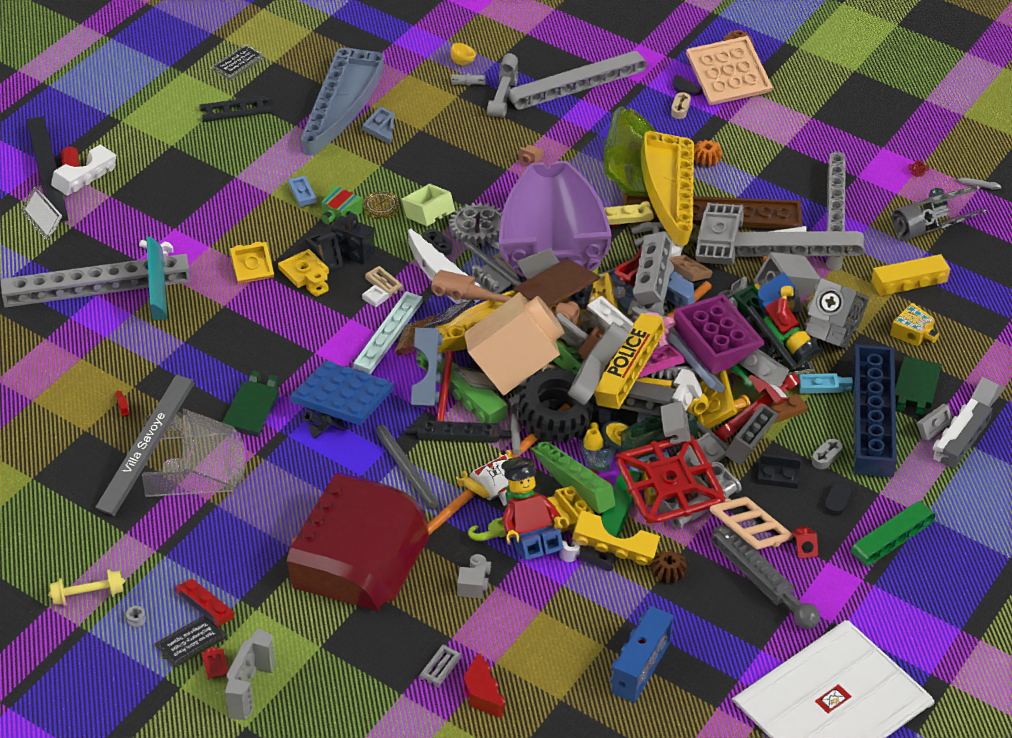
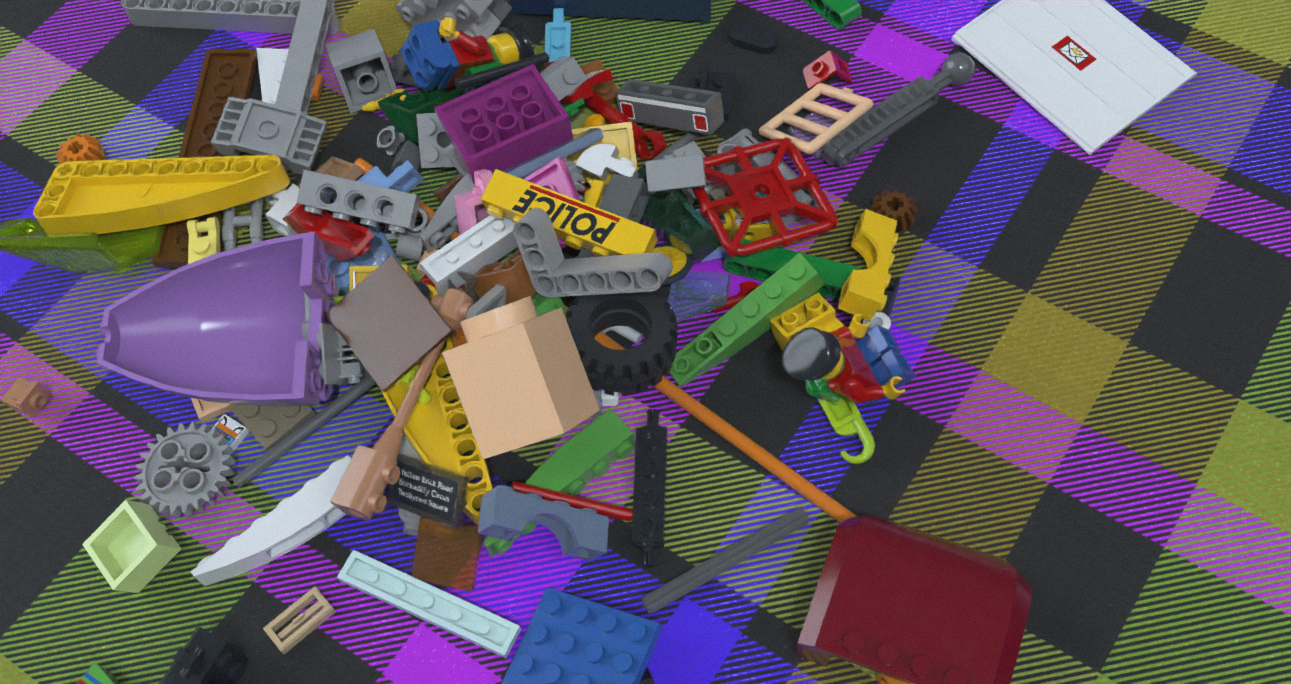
camera: 85 degrees left, 15 degrees up
(375, 296) = (333, 632): white tile -> none
(381, 205) = (103, 635): clear yellow tile -> none
(432, 678) = (1104, 498): light grey tile -> none
(438, 241) = (217, 532): black plate -> none
(472, 580) = (952, 447): light grey brick -> none
(476, 378) = (561, 451): clear smoke piece -> none
(482, 688) = (1140, 434): red slope -> none
(488, 480) = (761, 423): torso -> none
(490, 279) = (319, 449): light grey hinge -> none
(515, 434) = (659, 402): light grey bar -> none
(593, 438) = (680, 301): yellow bar -> none
(641, 654) = (1062, 235): blue brick -> none
(739, 285) = (369, 125): light grey slope -> none
(830, 456) = (680, 43): light grey beam -> none

